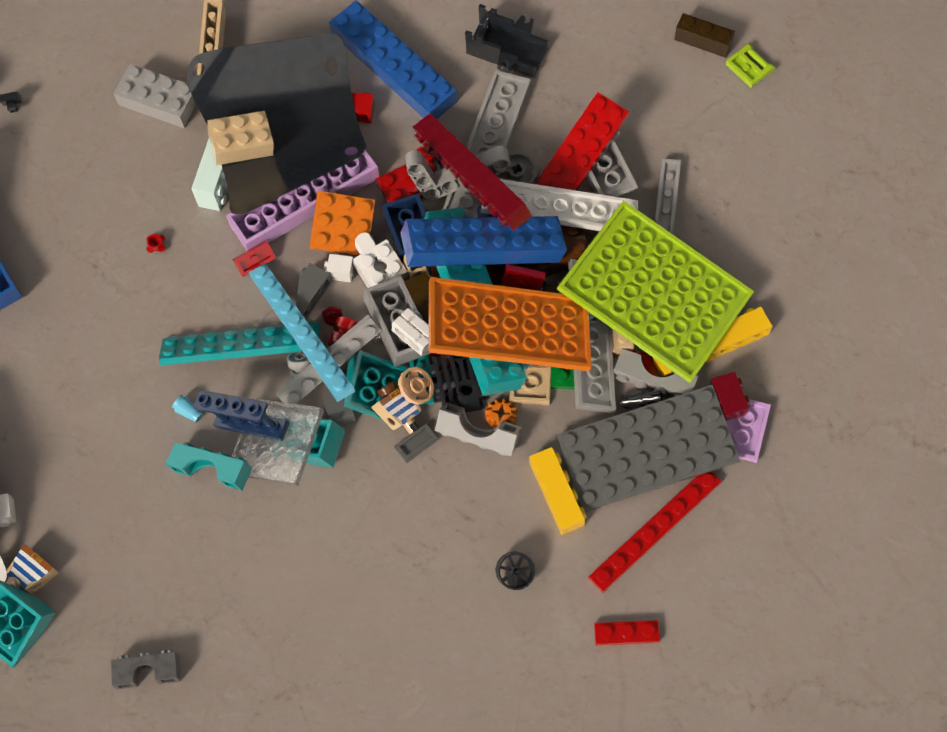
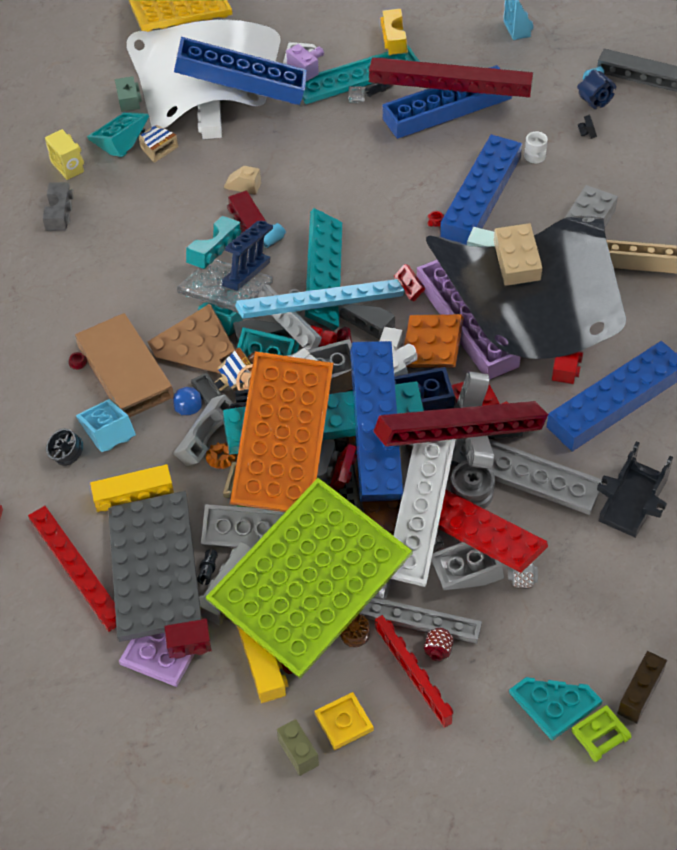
camera: 95 degrees right, 15 degrees down
(46, 148) = (535, 147): none -> white wheel
(59, 677) = (65, 154): none -> light yellow brick
(97, 456) = (244, 179): none -> tan slope
(112, 198) = (481, 188): none -> blue brick
(156, 441) = (244, 210): none -> dark red brick
(359, 460) = (195, 341): none -> medium nougat wing
(389, 589) = (77, 361): none -> dark red plate
(393, 535) = (124, 365): none -> medium nougat brick
(434, 460) = (187, 401): none -> blue hair
(476, 536) = (106, 425): none -> medium azure slope
(691, 190) = (438, 644): none -> dark red head
(723, 205) = (410, 665): none -> red plate
(730, 99) = (554, 703): none -> teal plate
(778, 259) = (344, 721): none -> yellow plate
(813, 291) = (297, 747): none -> olive brick

